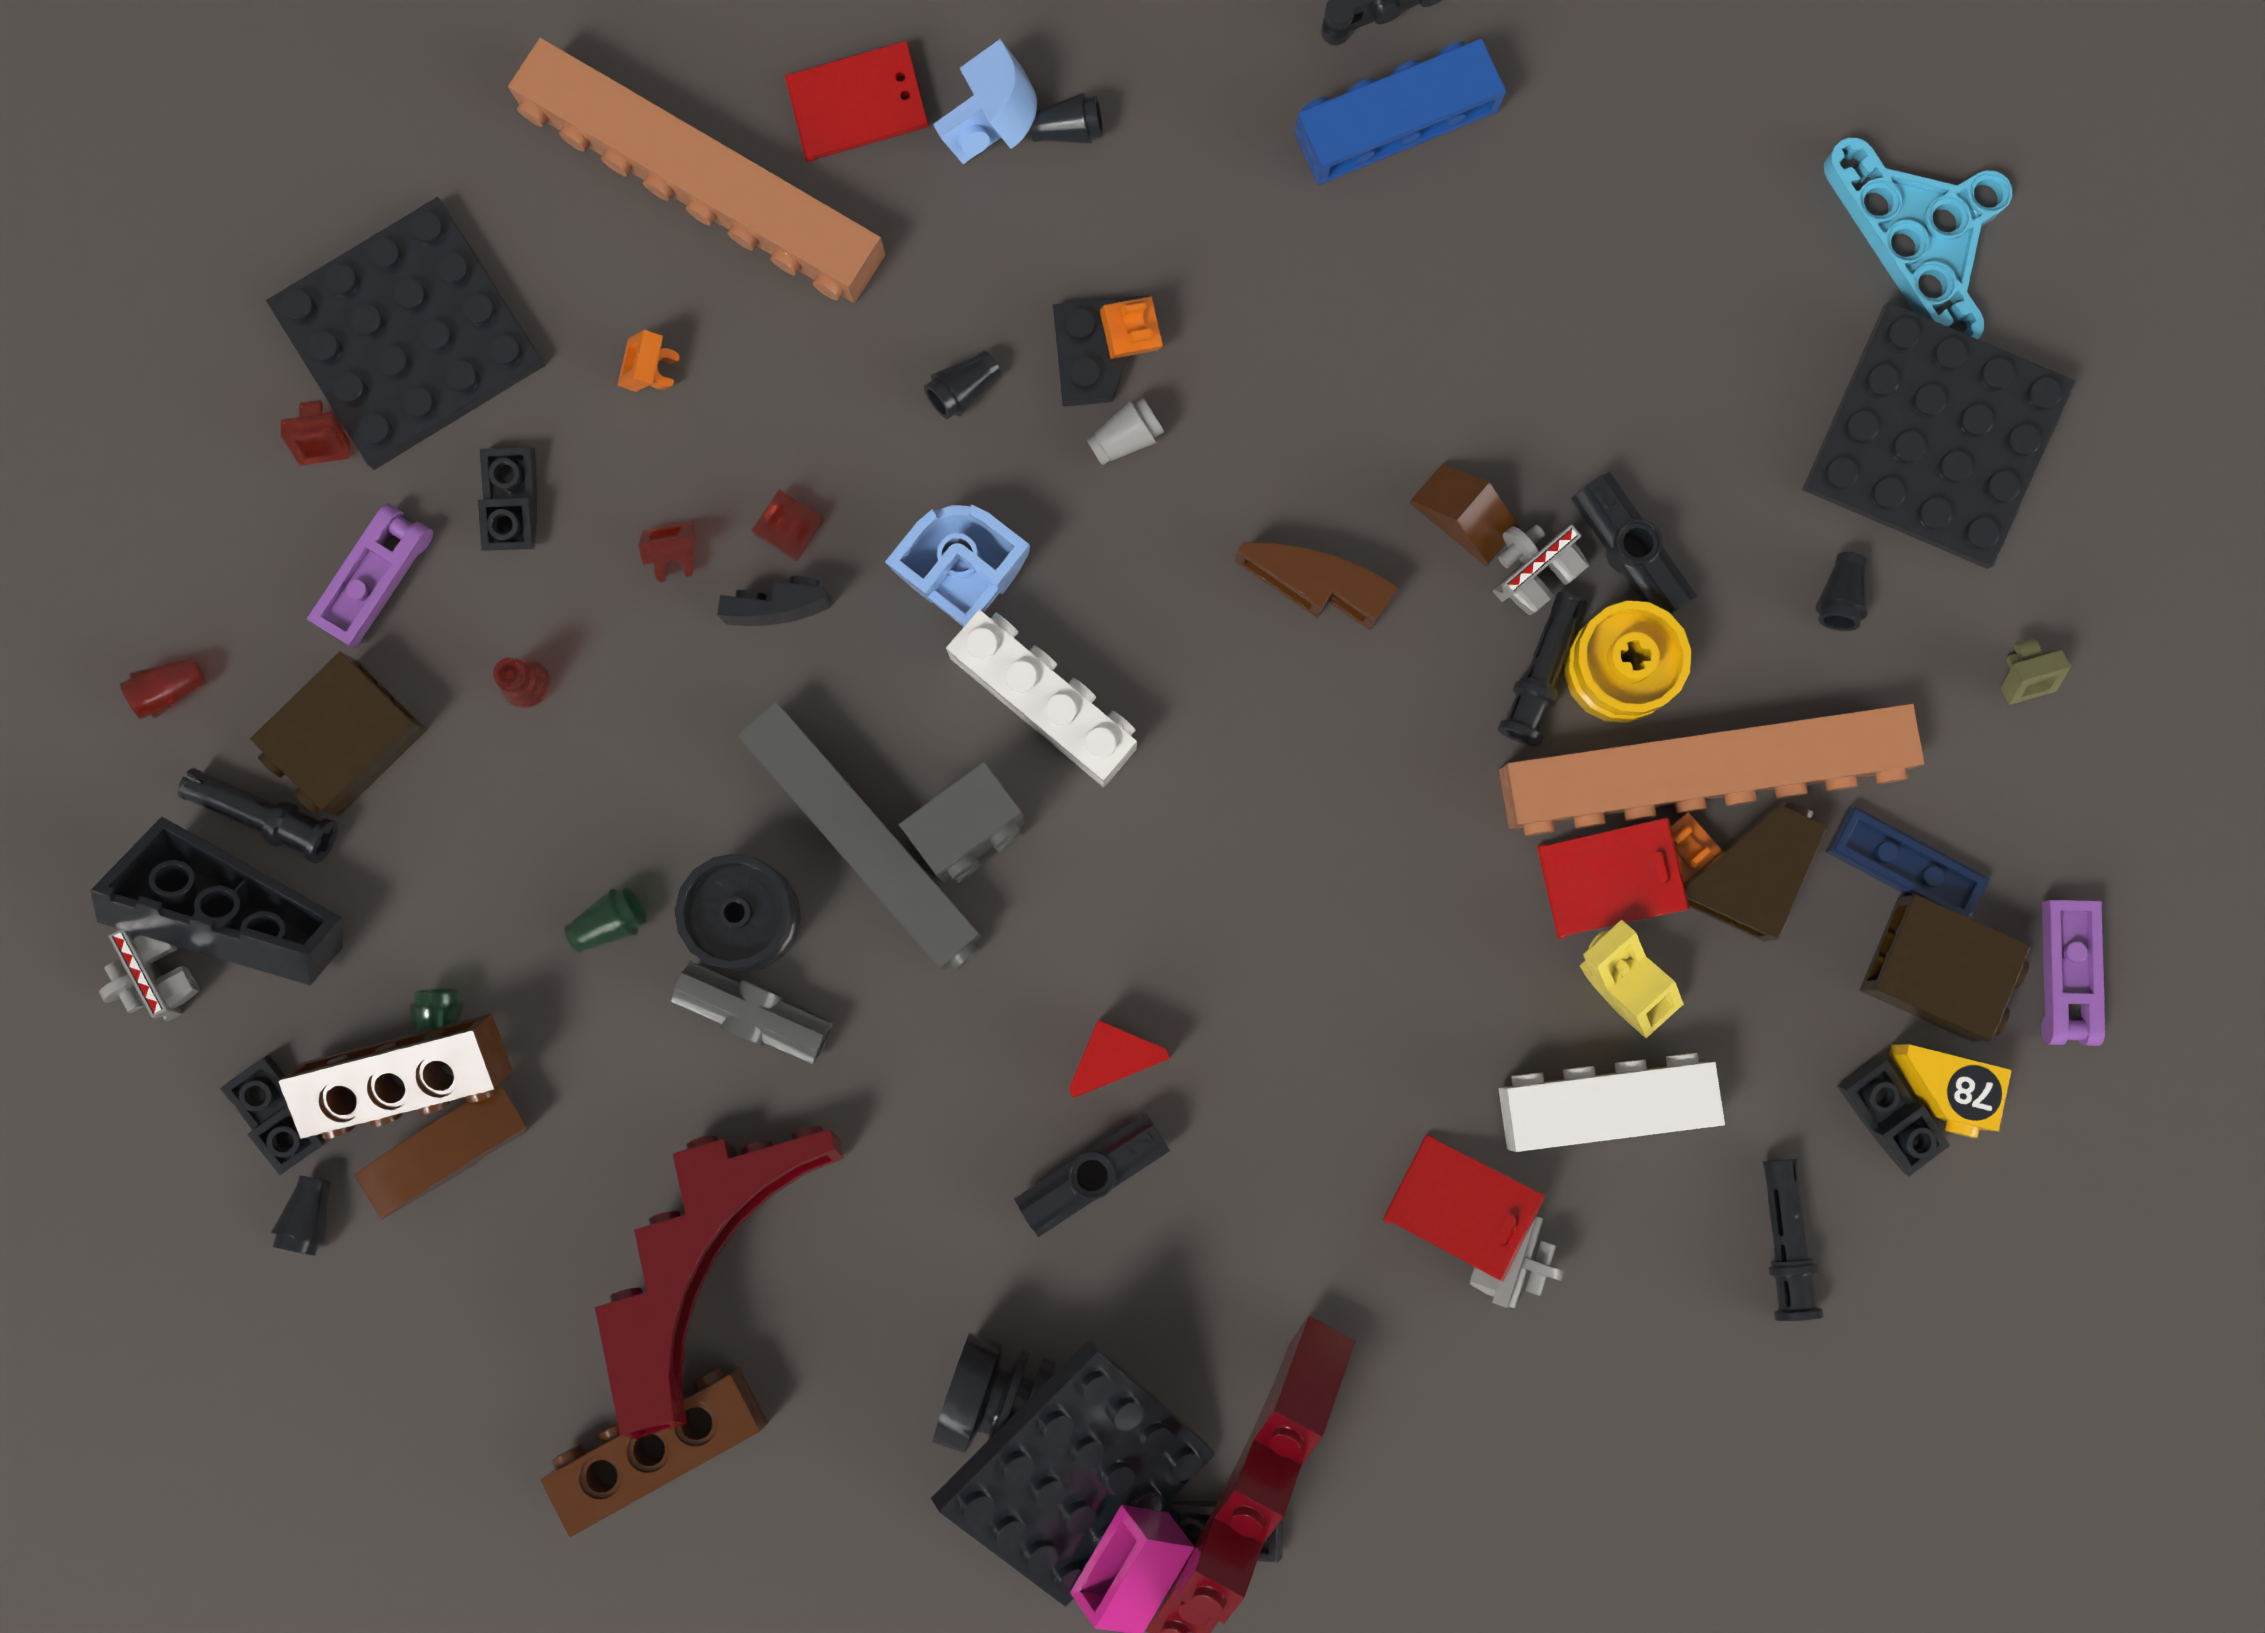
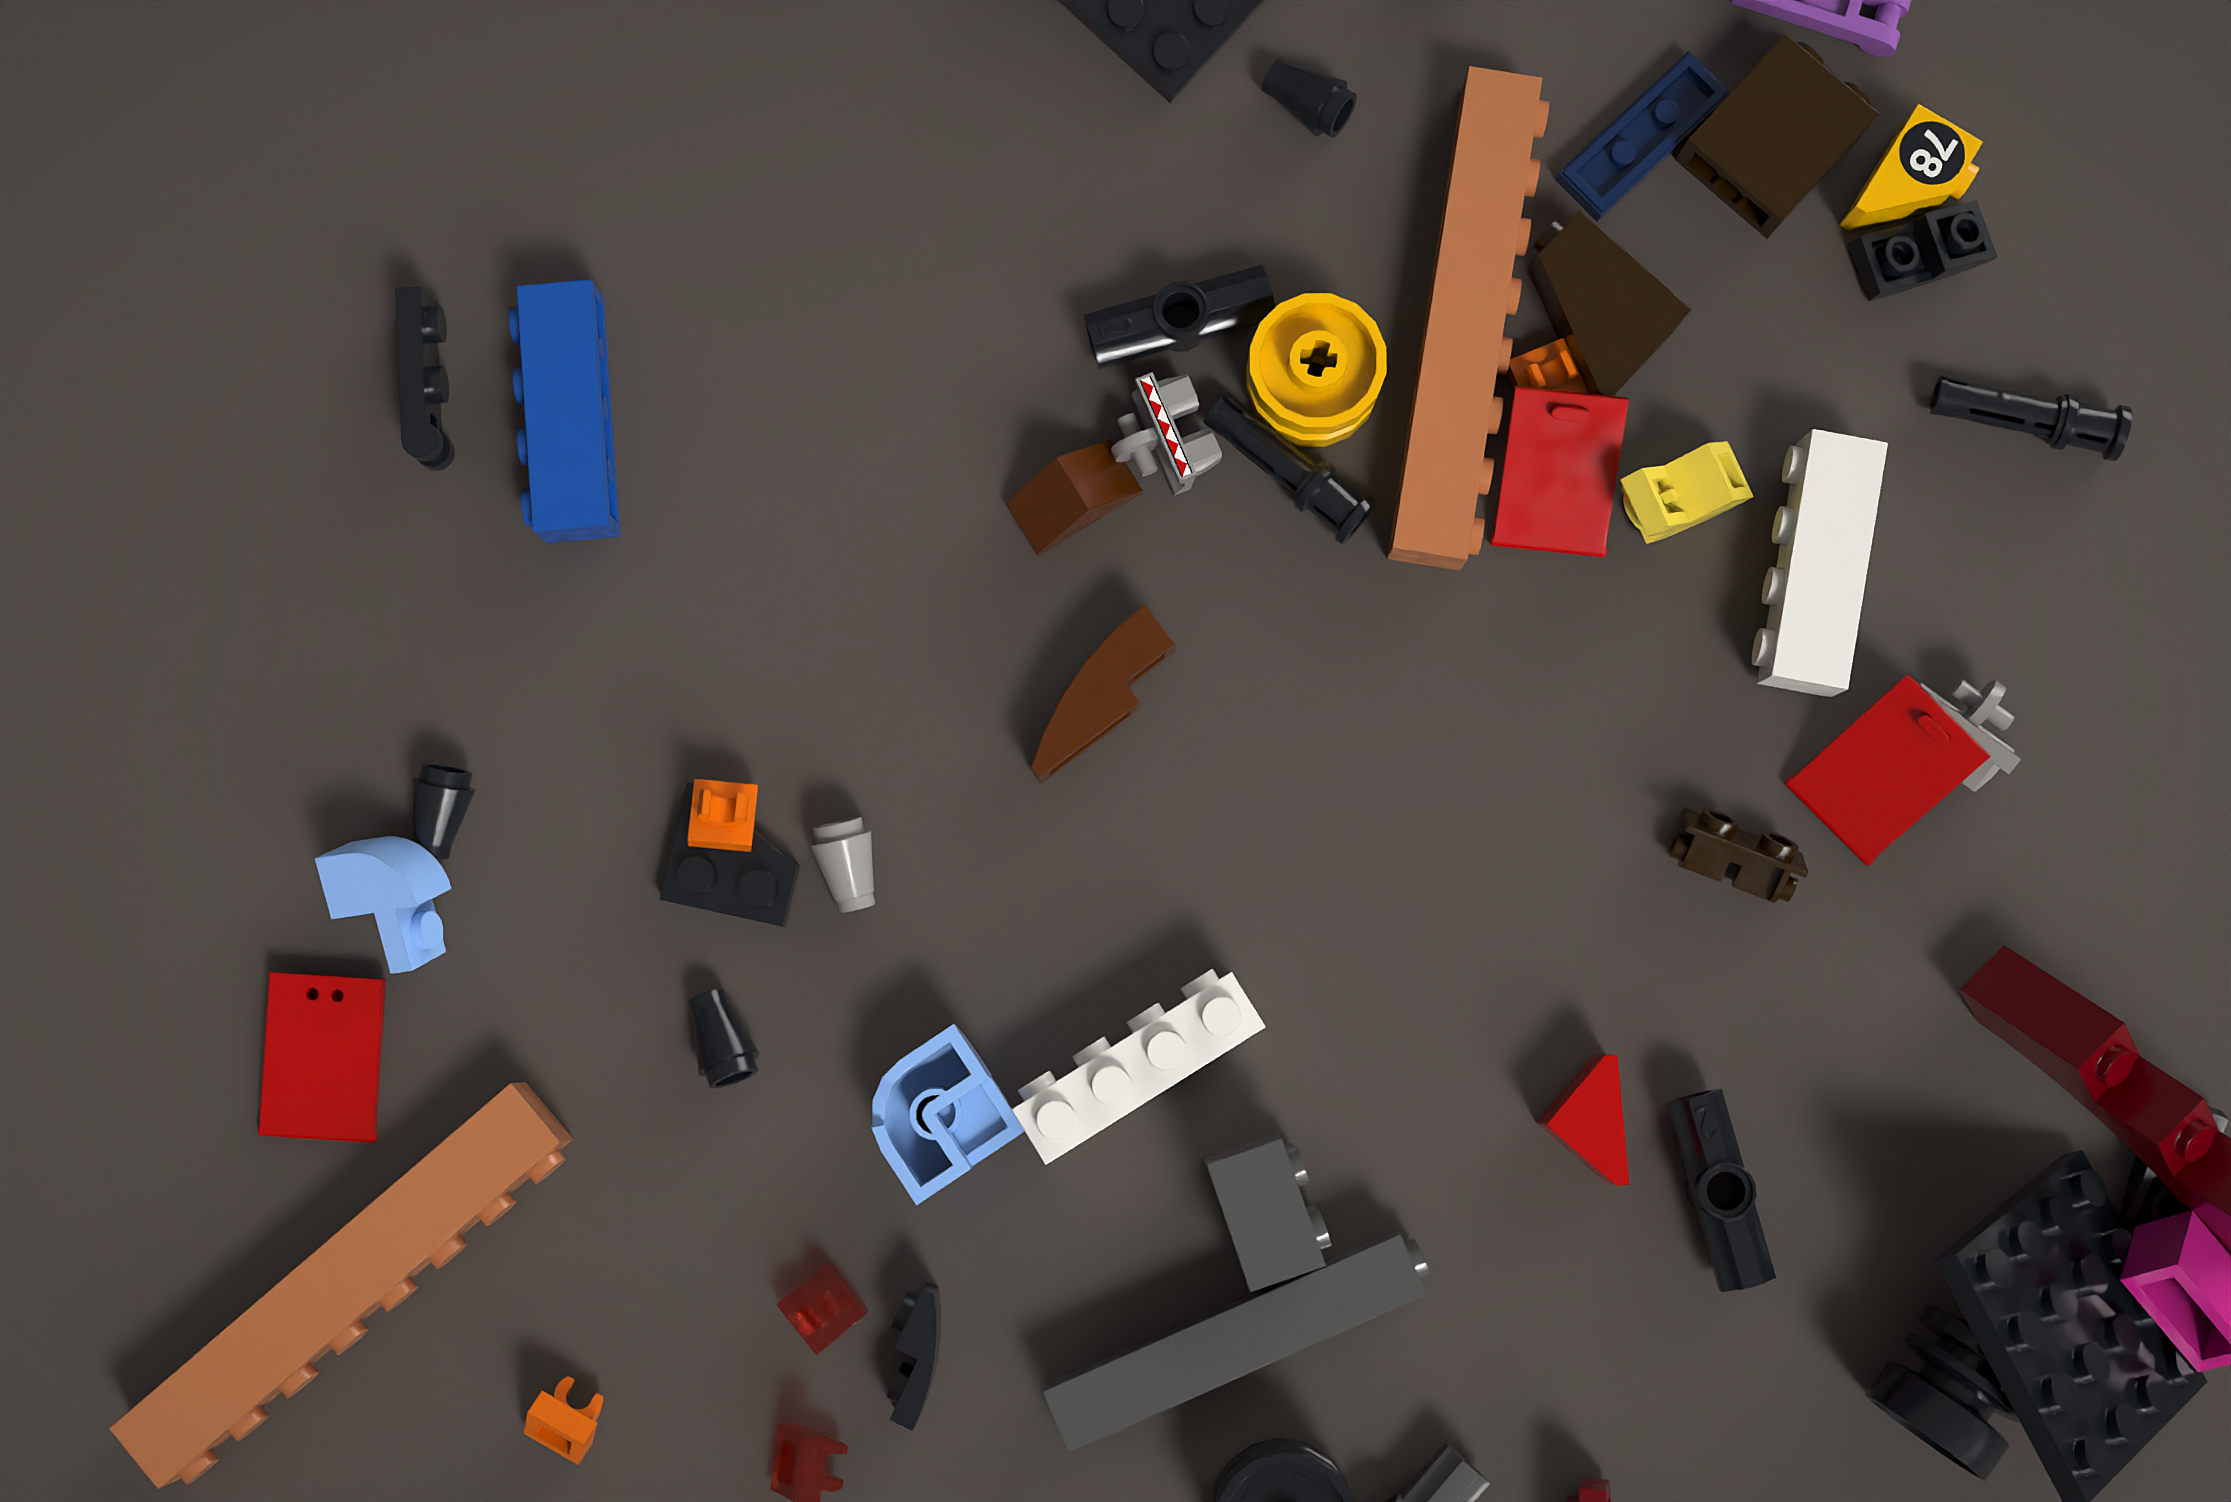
camera: 65 degrees left, 0 degrees up
(1361, 1131) = (1762, 861): none -> dark brown hinge

